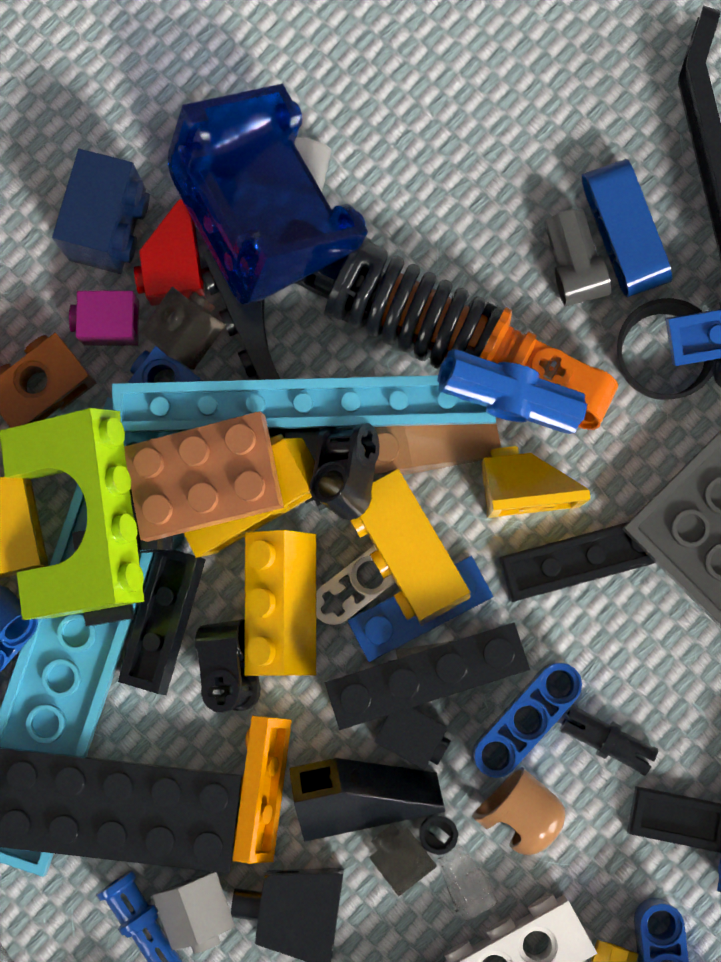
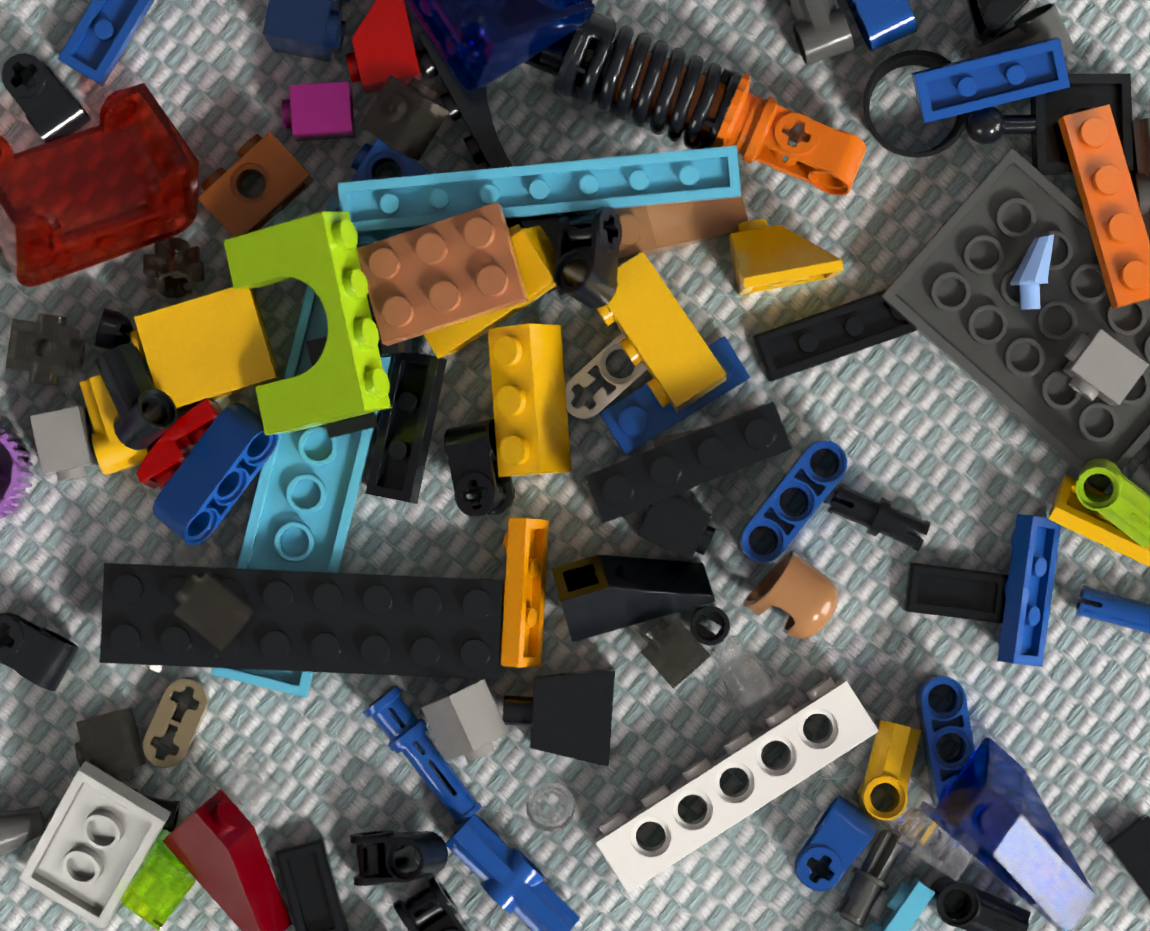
camera: 10 degrees left, 5 degrees up
(511, 392) = (755, 164): blue piece -> none

